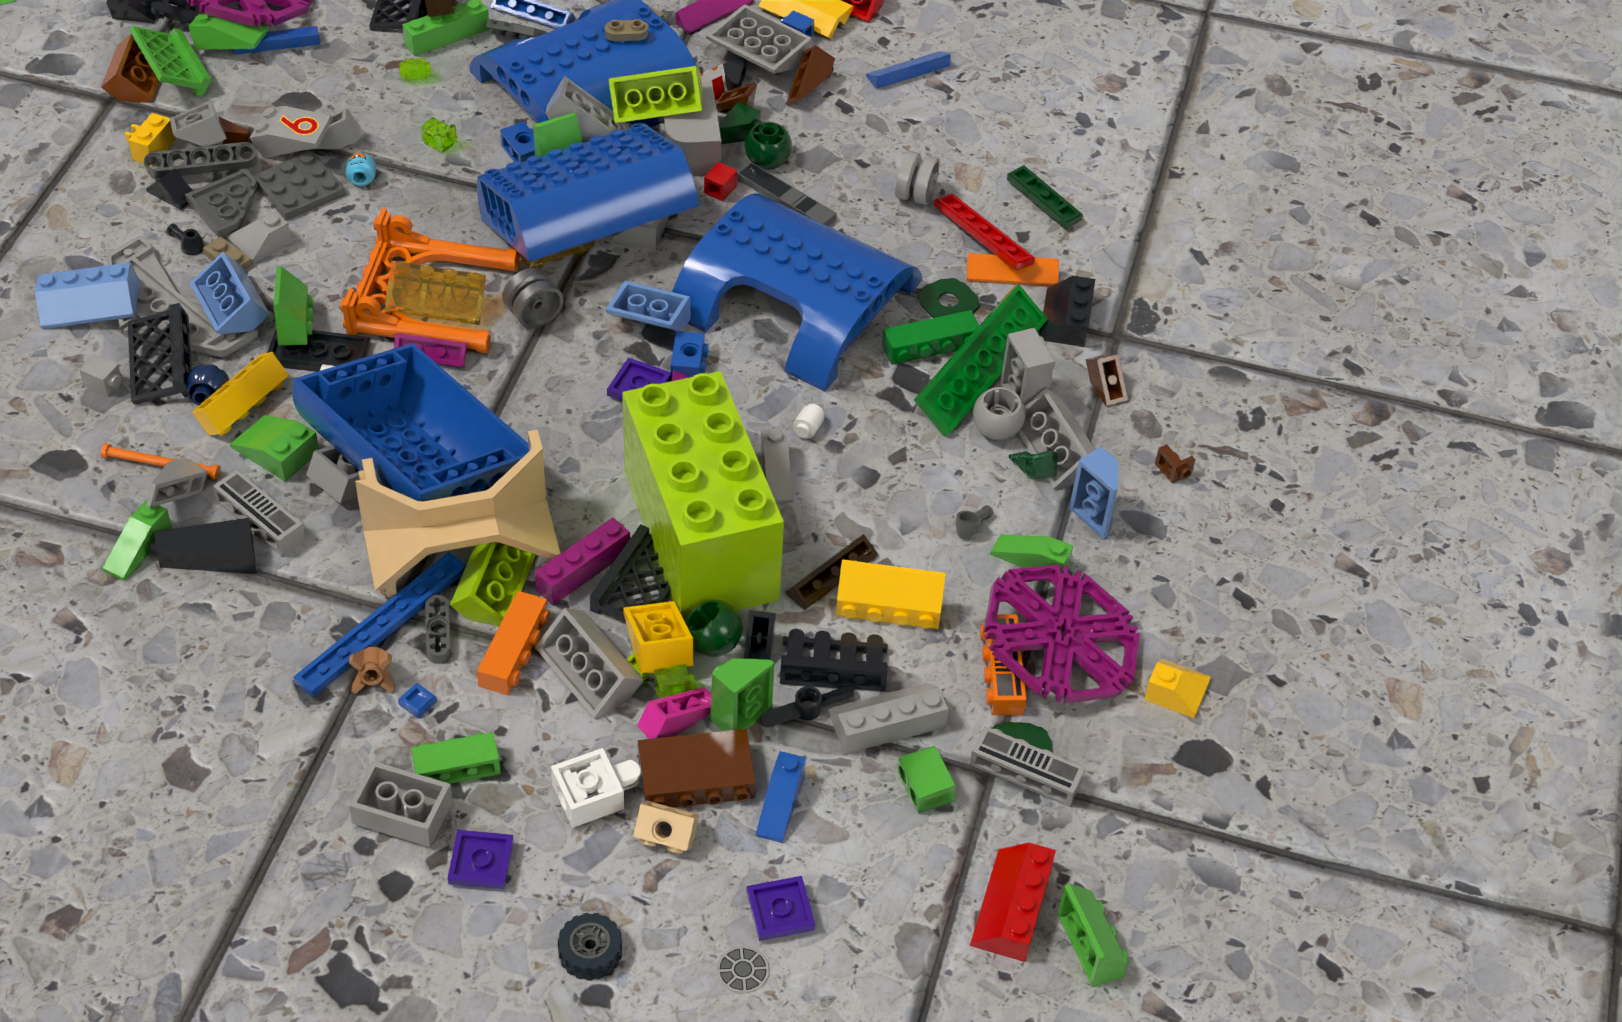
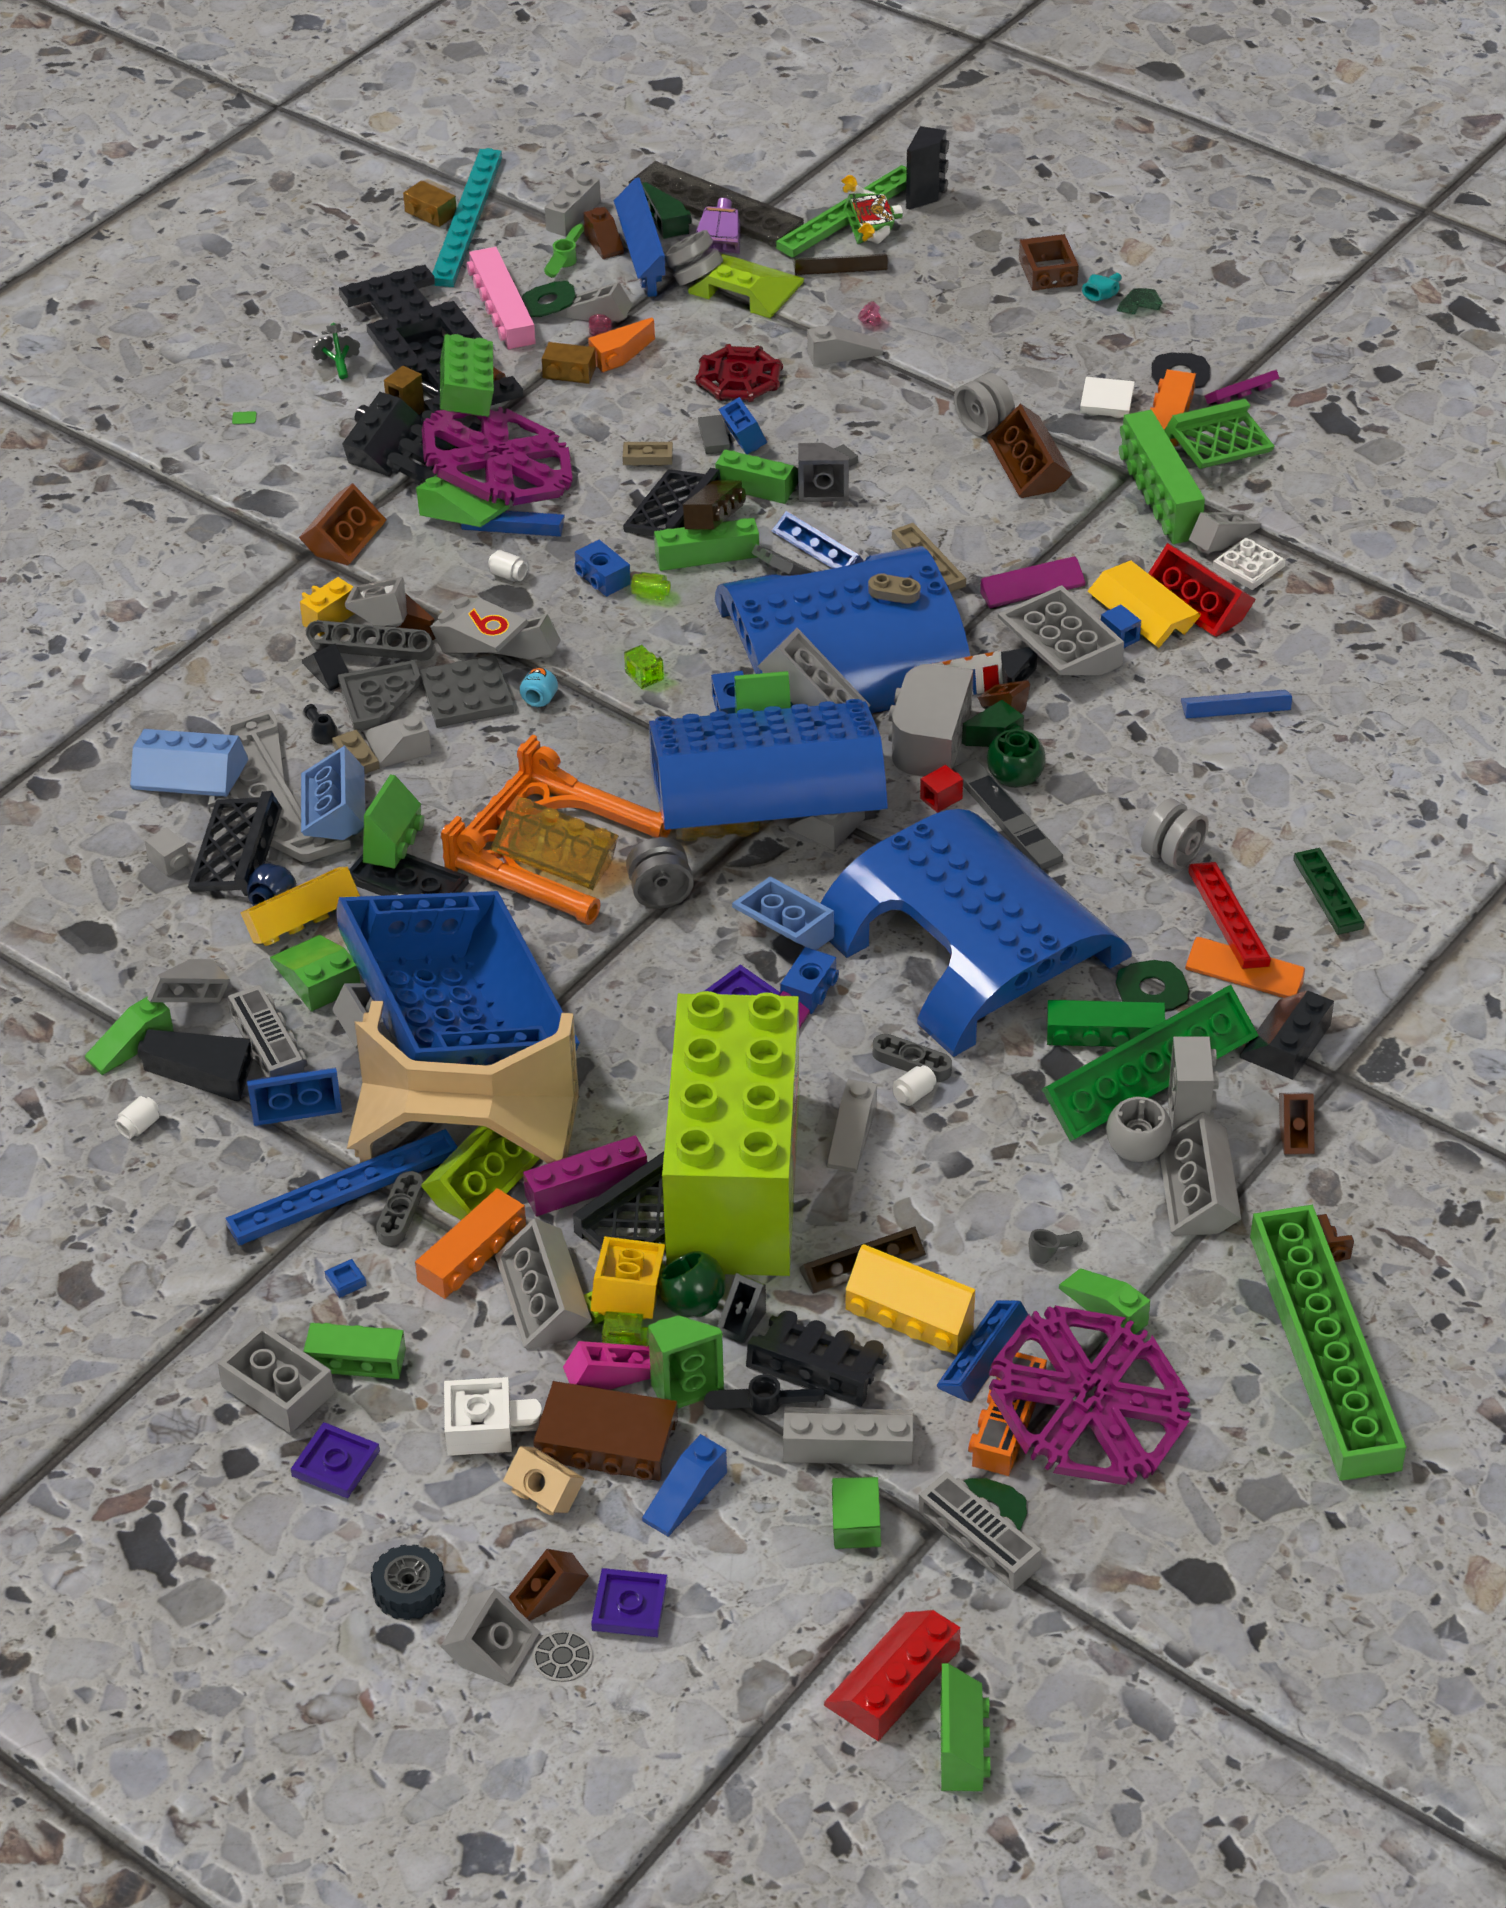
camera: 25 degrees right, 5 degrees down
(109, 451) = (141, 934): orange bar -> none
(173, 58) = (401, 523): bright green fence -> none
(175, 609) = (137, 1117): none -> white brick
(289, 76) = (507, 566): none -> white brick
(307, 556) = (294, 1096): none -> blue slope
(369, 62) = (602, 568): none -> blue brick
(371, 668) = (309, 1230): medium nougat brick -> none
(439, 350) = (530, 905): magenta plate -> none
(656, 94) = (897, 670): lime slope -> none
(680, 972) = (490, 1637): none -> light grey slope
(708, 913) = (548, 1583): none -> reddish brown slope
(778, 392) = (887, 1047): none -> dark grey beam
(813, 69) = (1113, 679): reddish brown slope -> none
(958, 619) = (973, 1362): none -> blue slope
(1036, 465) = (1161, 1200): clear green slope -> none
(1095, 490) = (1207, 1242): medium blue slope -> none
(1176, 687) = (1203, 1492): yellow slope -> none
(1213, 544) = (1327, 1343): none -> bright green brick

